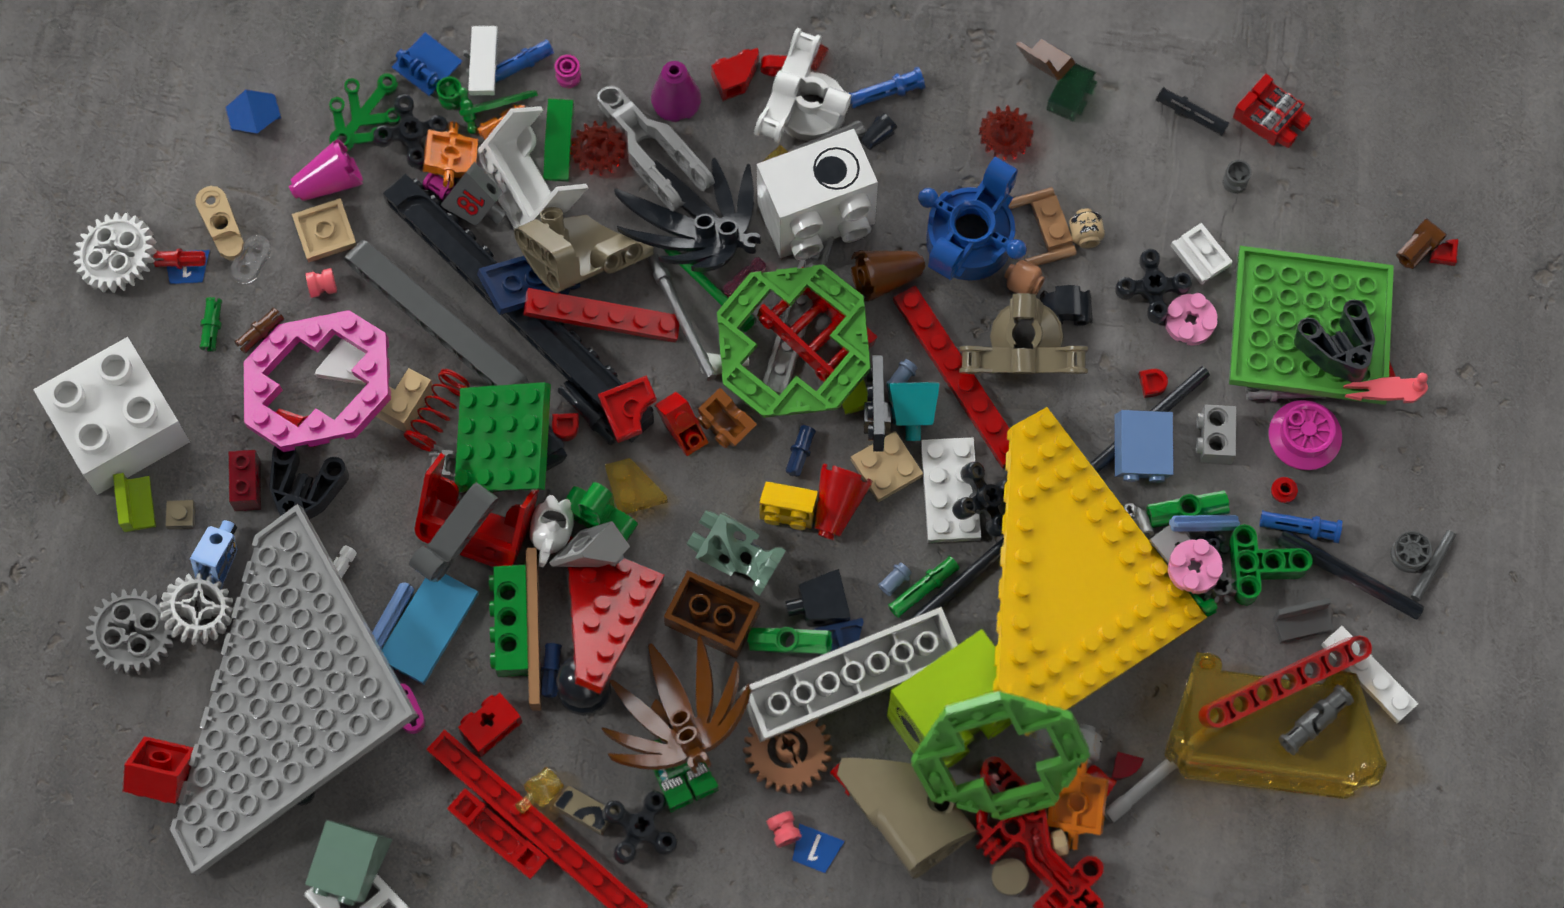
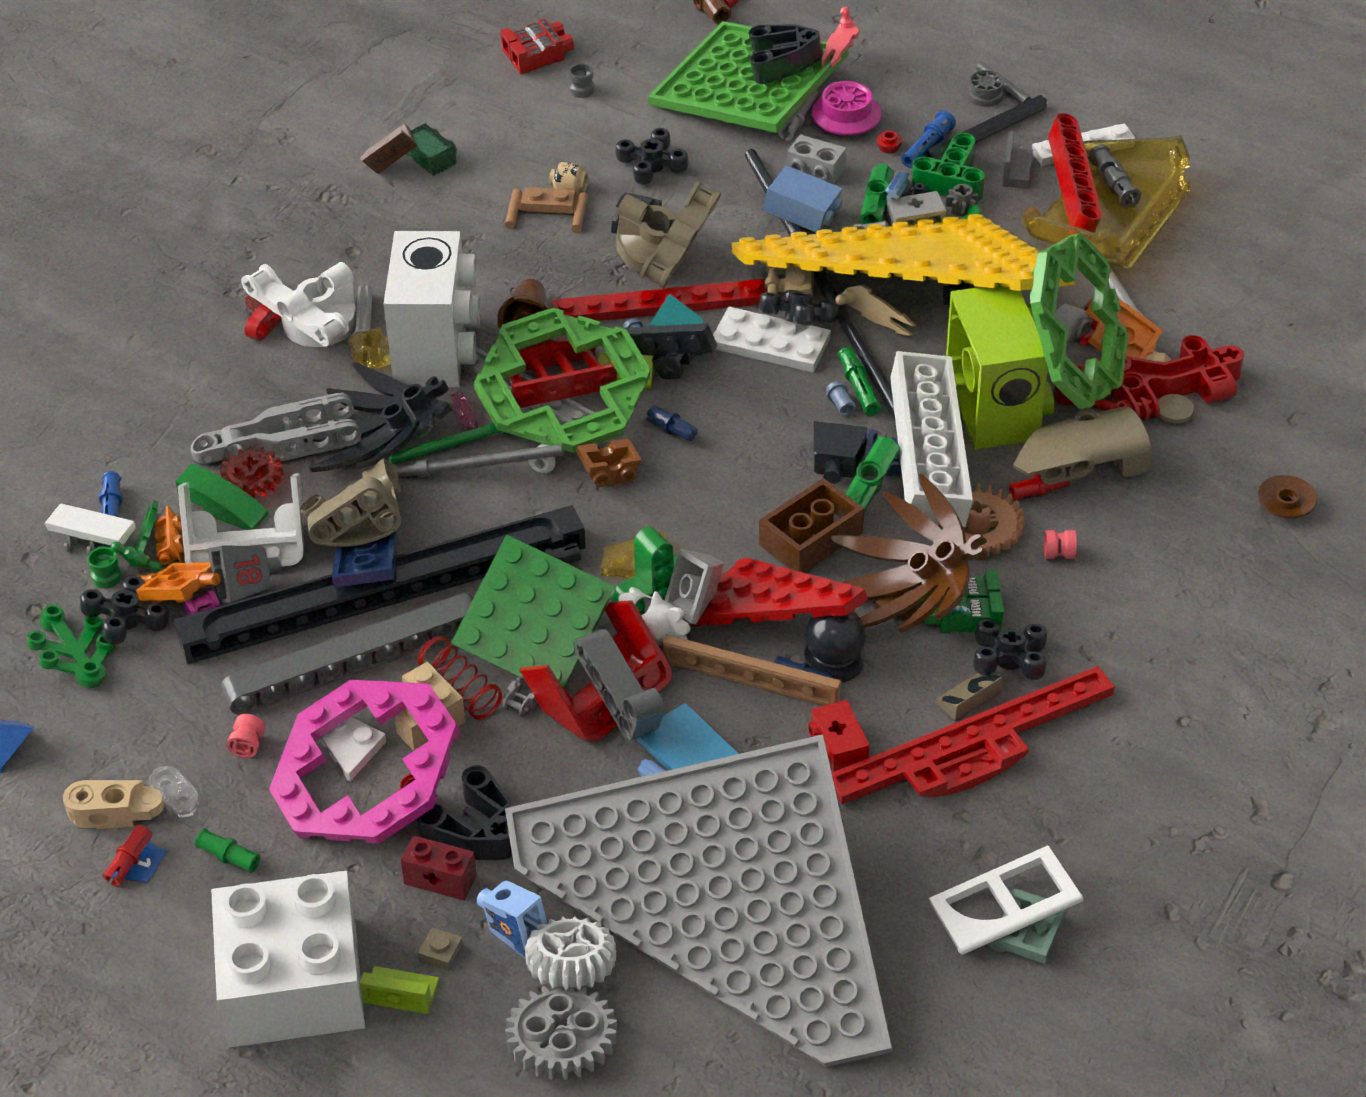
camera: 65 degrees left, 25 degrees down
(115, 252) = (77, 912): white gear -> none
(157, 770) = (748, 1051): red slope -> none
(259, 330) = (264, 808): reddish brown pin -> none
(324, 230) = (184, 717): tan plate -> none
(326, 174) = (124, 685): dark pink cone -> none
(346, 862) = (943, 889): sand green slope -> none
(426, 63) = (54, 580): blue hinge -> none
(509, 579) = (732, 687): green brick -> none
(540, 789) = (931, 713): clear yellow piece -> none
(569, 77) = (150, 471): dark pink wheel -> none
(601, 315) = (440, 513): red plate -> none
(626, 405) = (555, 520): red tile -> none
(675, 93) = (233, 392): magenta cone -> none
(681, 423) = (591, 494): red slope -> none
(723, 542) = (777, 479): sand green hips -> none
(735, 74) = (246, 355): red slope -> none
(788, 505) = (727, 441): yellow slope -> none
(816, 848) = (1090, 535): blue sticker -> none
(838, 499) = (739, 403): red cone -> none
(880, 130) = (376, 274): black cone -> none
(887, 469) = (722, 373): tan plate -> none
(897, 85) = (342, 248): blue pin -> none
(981, 257) = (521, 239): blue piece -> none
(1018, 131) = (440, 199): clear red gear -> none
(1024, 278) = (593, 227): nougat head -> none
(1153, 382) = (741, 187): red tile -> none
(1165, 97) = (491, 92): black pin -> none
(1193, 305) = (705, 140): bright pink plate -> none
(1200, 552) = (928, 189): bright pink plate -> none
(1201, 253) = (637, 121): white plate -> none

